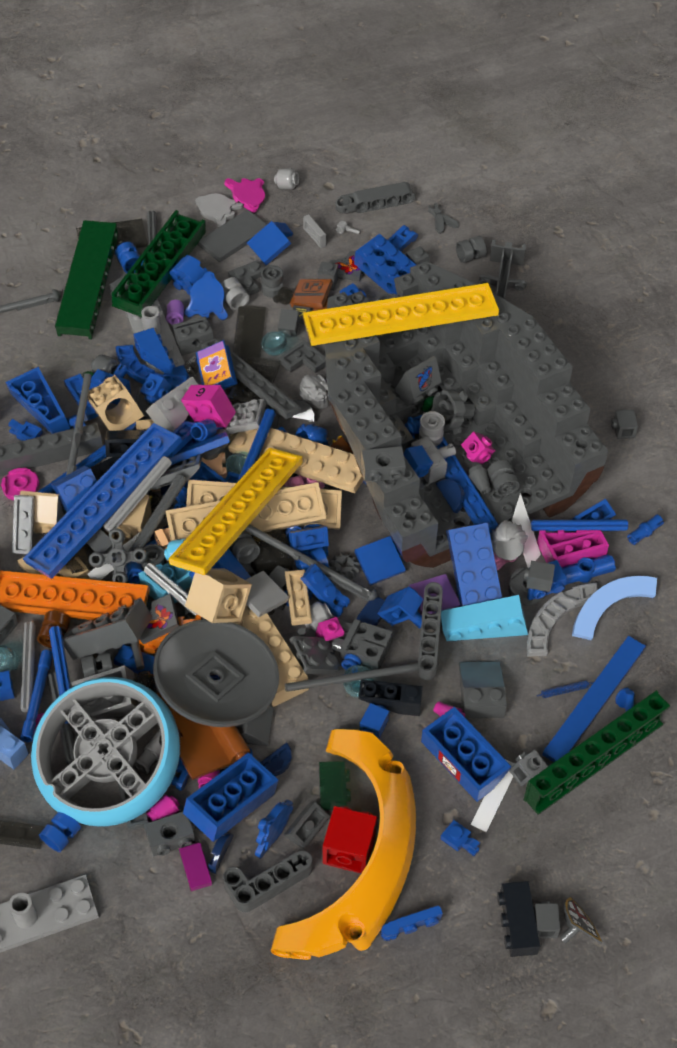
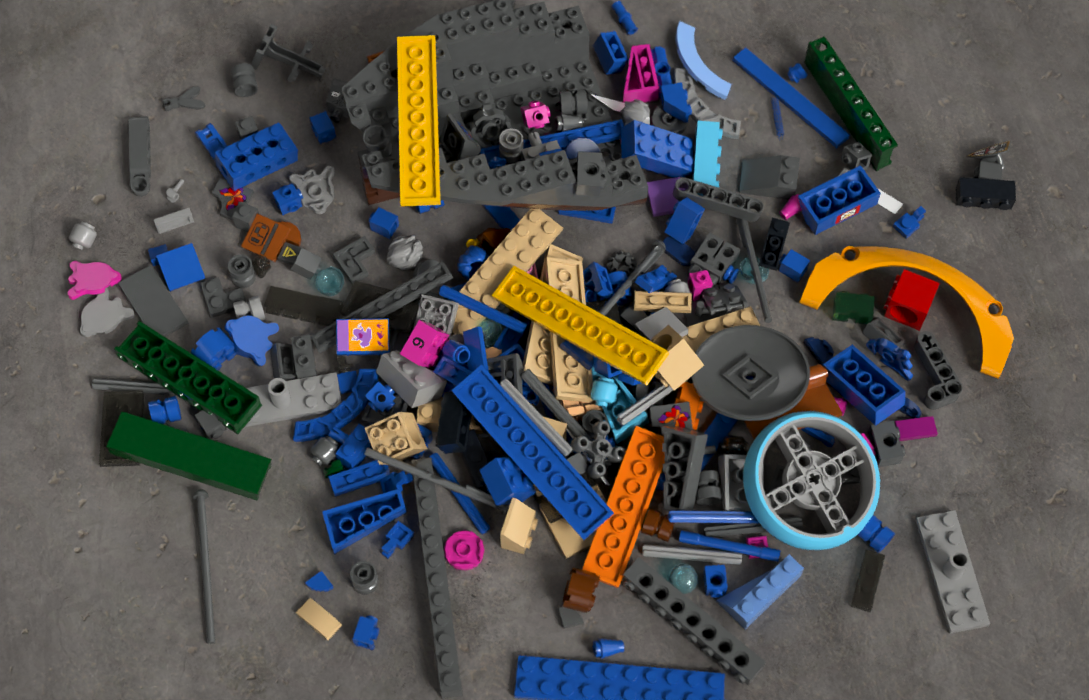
camera: 80 degrees left, 10 degrees up
(23, 524) = (531, 541): tile -> none
(152, 351) = (318, 397): blue slope -> none
(175, 312) = (259, 373): medium lavender brick -> none
(380, 560) = (623, 232): blue tile -> none
(410, 923) = (982, 270): blue hinge -> none
(539, 576) = (682, 99): dark grey brick -> none
(573, 525) = (624, 62): blue axle -> none

